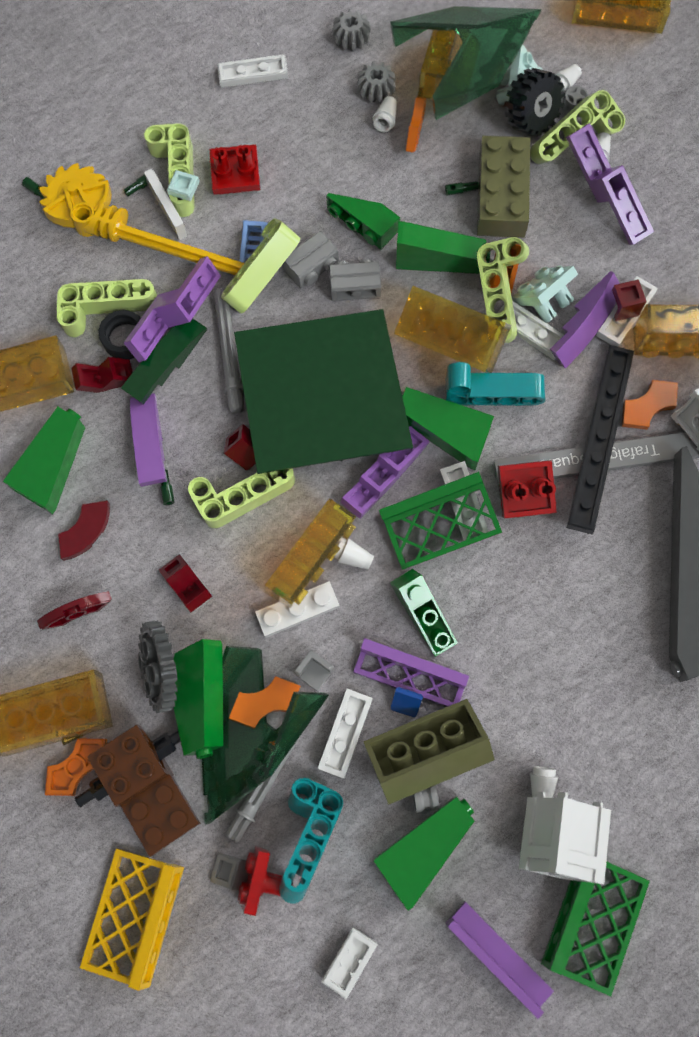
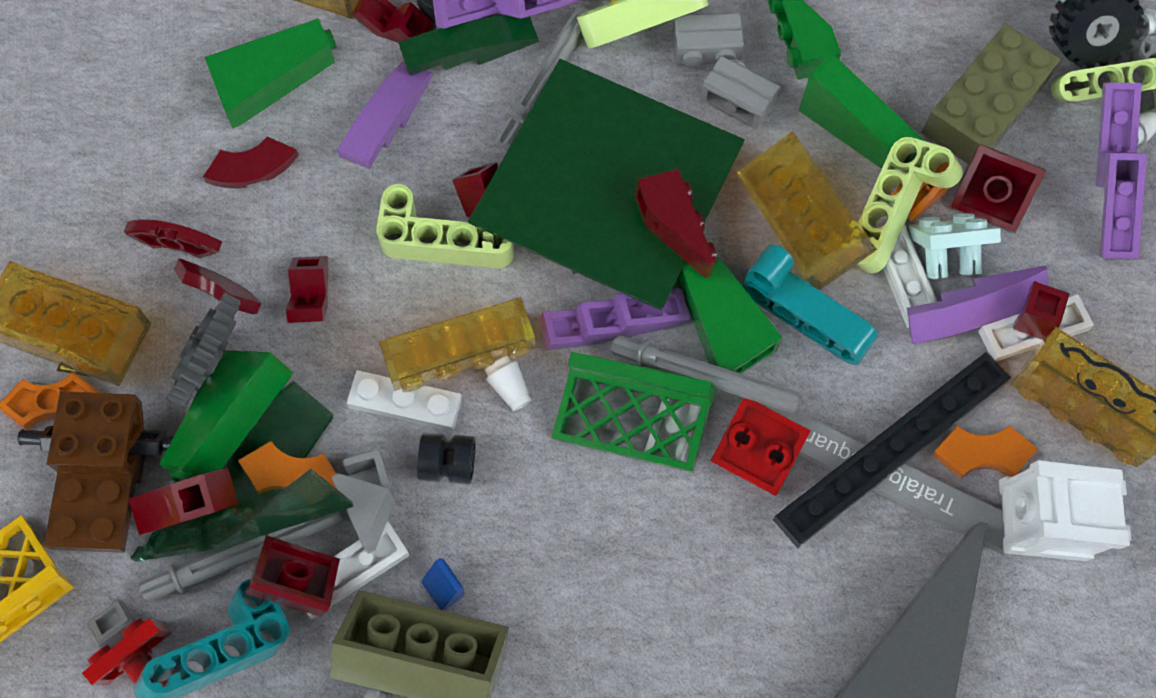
camera: 30 degrees right, 5 degrees down
(125, 621) = (216, 285): none -> dark red tile
(167, 492) = (366, 180): dark green pin -> none
(219, 767) = (183, 501): none -> dark red slope
(321, 761) = (294, 576): none -> dark red slope
(334, 686) = (370, 509): none -> light grey slope
(343, 629) = (433, 458): none -> black wheel
(379, 386) = (671, 216): none -> dark red slope
(412, 663) = (483, 549): medium lavender fence -> none
(424, 611) = (538, 501): green slope -> none
(458, 188) = (939, 68): dark green pin -> none
(466, 468) = (723, 379): none -> light grey axle
(548, 240) = (997, 187): none -> dark red slope

